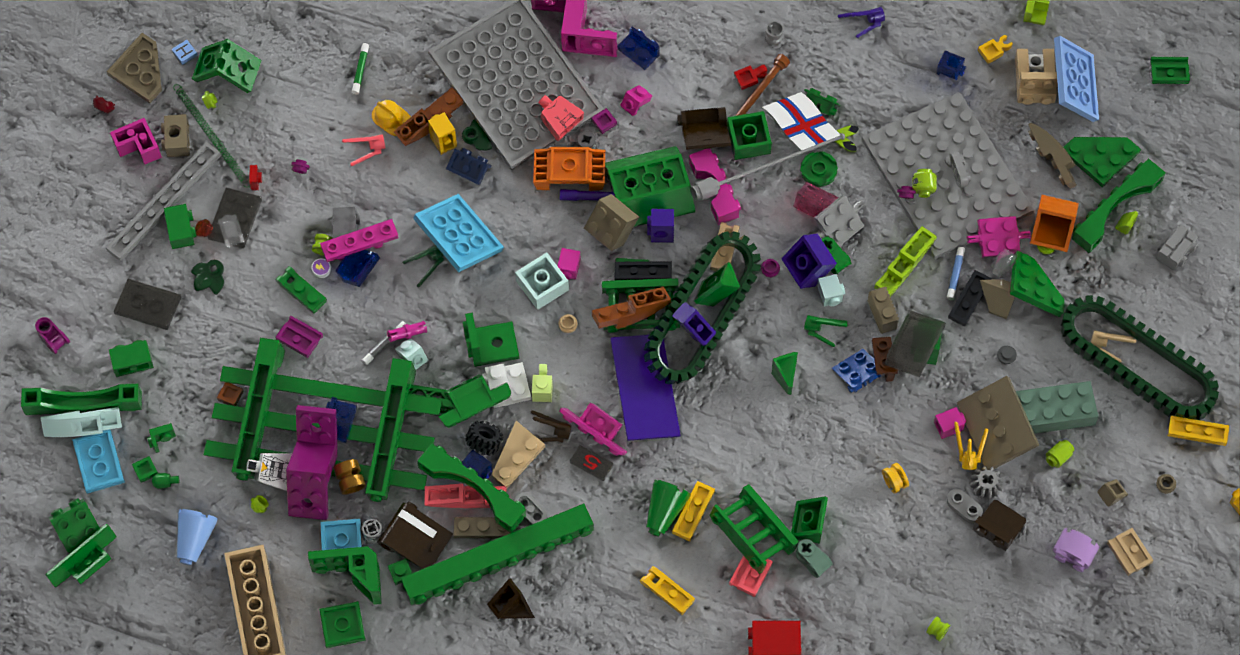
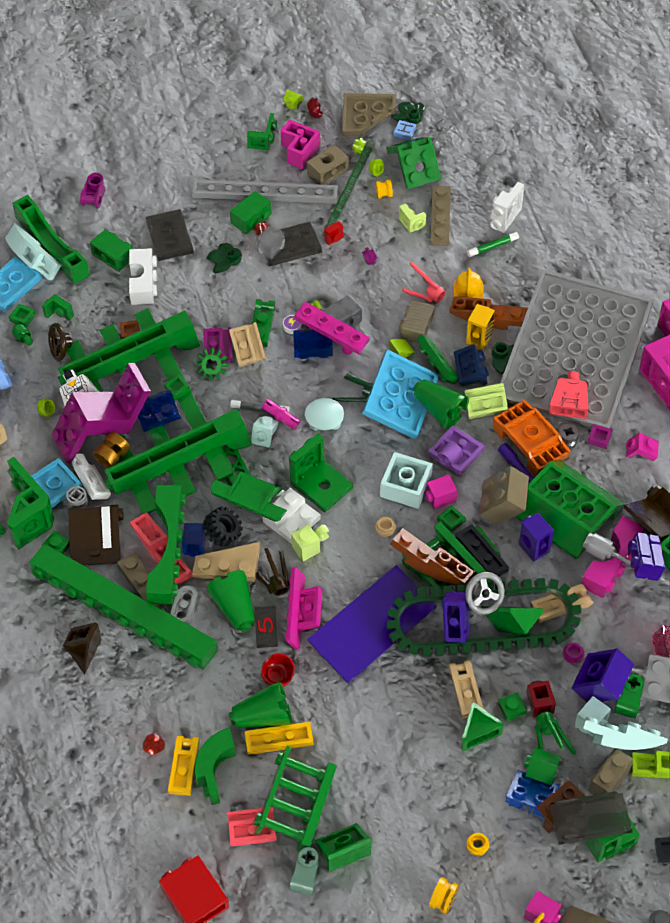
camera: 55 degrees right, 10 degrees down
(76, 115) = (292, 99): none -> lime piece
(105, 168) = (262, 140): none -> green bracket
(167, 36) = (409, 112): none -> dark green plate
(167, 342) = (142, 288): none -> white arch
(175, 98) = (358, 146): none -> lime plate
(201, 453) = (58, 341): none -> dark brown piece
(238, 110) = (384, 189): none -> yellow wheel
(286, 112) = (410, 220): none -> yellowish green bracket
(298, 86) = (440, 215): none -> dark tan plate
(312, 352) = (213, 357): none -> green gear
(319, 313) = (247, 344): none -> tan plate
(325, 390) = (177, 386): none -> green tile
(339, 34) = (506, 207): none -> white plate
(357, 509) = (90, 478): none -> white hinge
(395, 174) = (417, 320): none -> dark tan brick
(410, 204) = (401, 347): none -> lime slope
(429, 300) = (324, 414): none -> light aqua dish
(443, 185) = (437, 359): none -> green tile
(490, 209) = (441, 402): none -> green cone
(512, 176) = (486, 401): none -> yellowish green plate
(538, 228) = (456, 450): none -> medium lavender plate
(556, 469) = (233, 599): none -> green cone
(595, 273) = (451, 518): none -> green tile
(635, 601) = (153, 744): none -> clear red plate
(639, 476) = (278, 669): none -> red hair
(679, 572) = (210, 756): none -> green arch
(691, 292) = (475, 590): none -> light grey piece
(739, 163) = (646, 556): none -> dark purple brick
(746, 358) = (464, 686): none -> tan plate
(781, 338) = (512, 706): none -> green plate
(796, 310) = (540, 690): none -> dark red brick
(845, 348) = (542, 765): none -> green brick
(863, 281) = (621, 737): none -> light aqua slope
(870, 426) = (482, 839): none -> yellow plate

